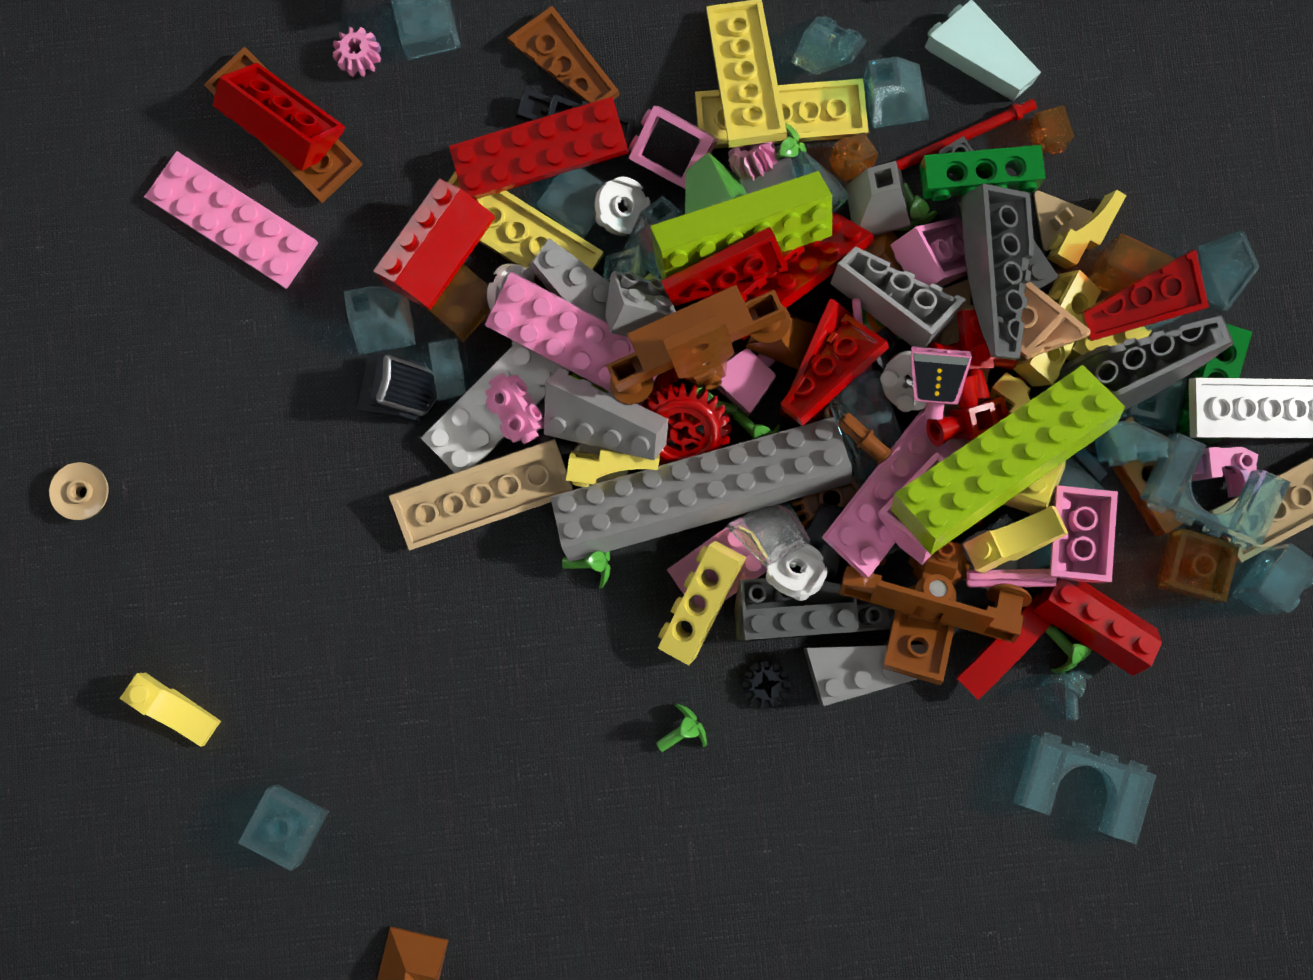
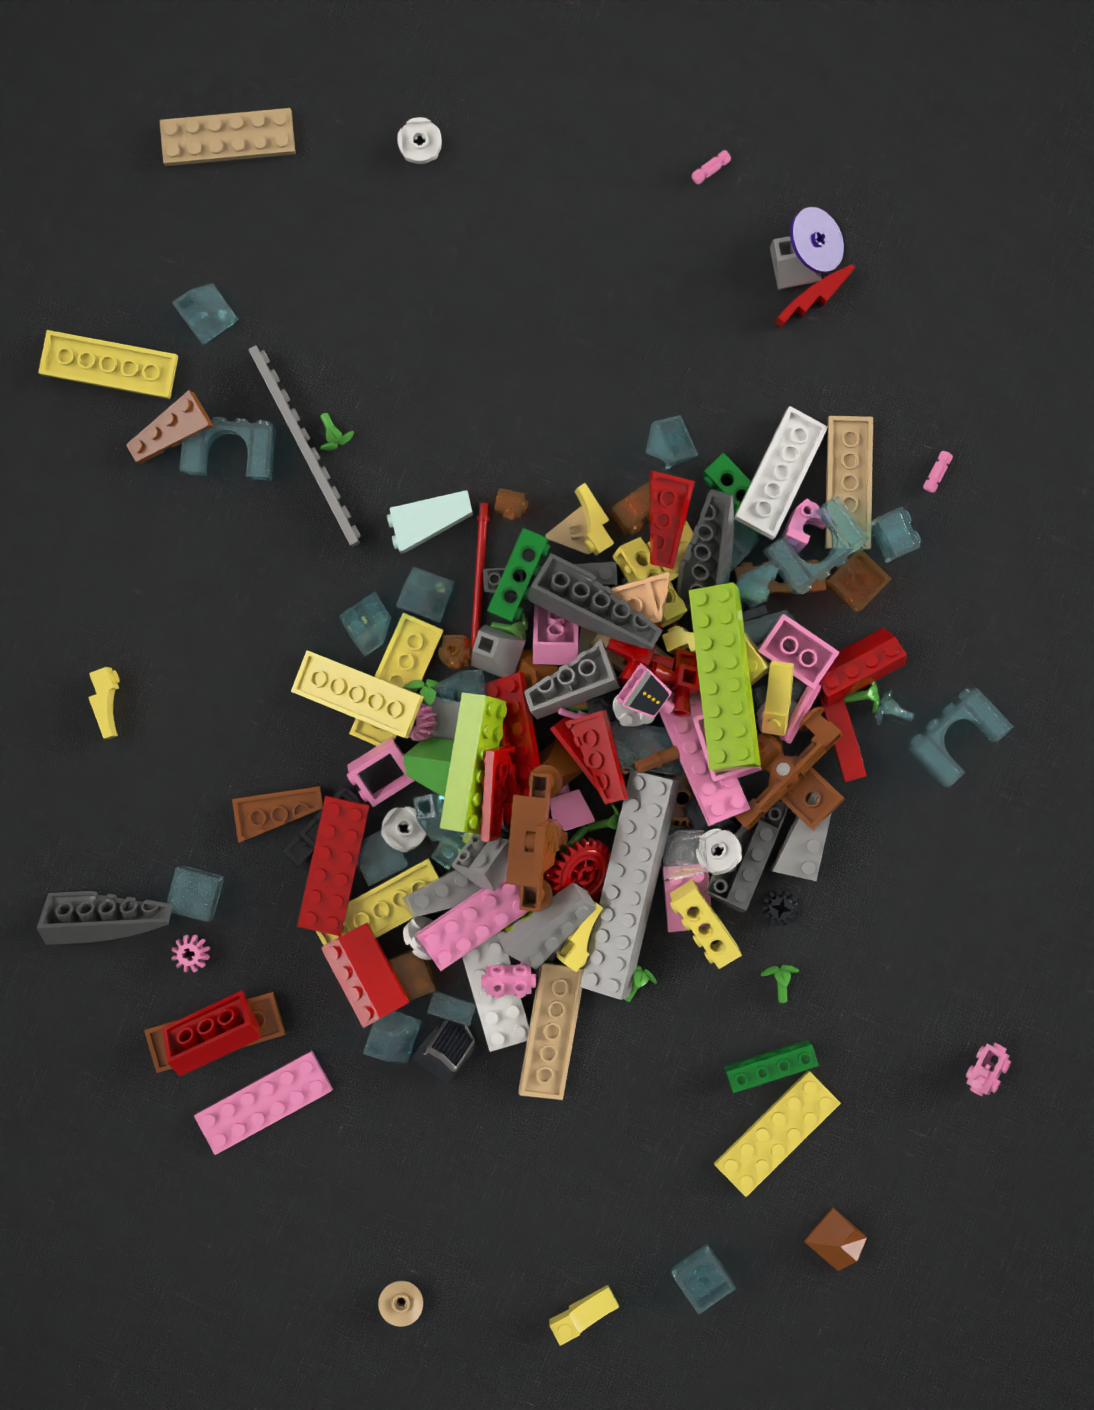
camera: 60 degrees left, 5 degrees up
(501, 824) = (777, 1133): none -> light yellow plate
(576, 773) = (771, 1066): none -> green brick

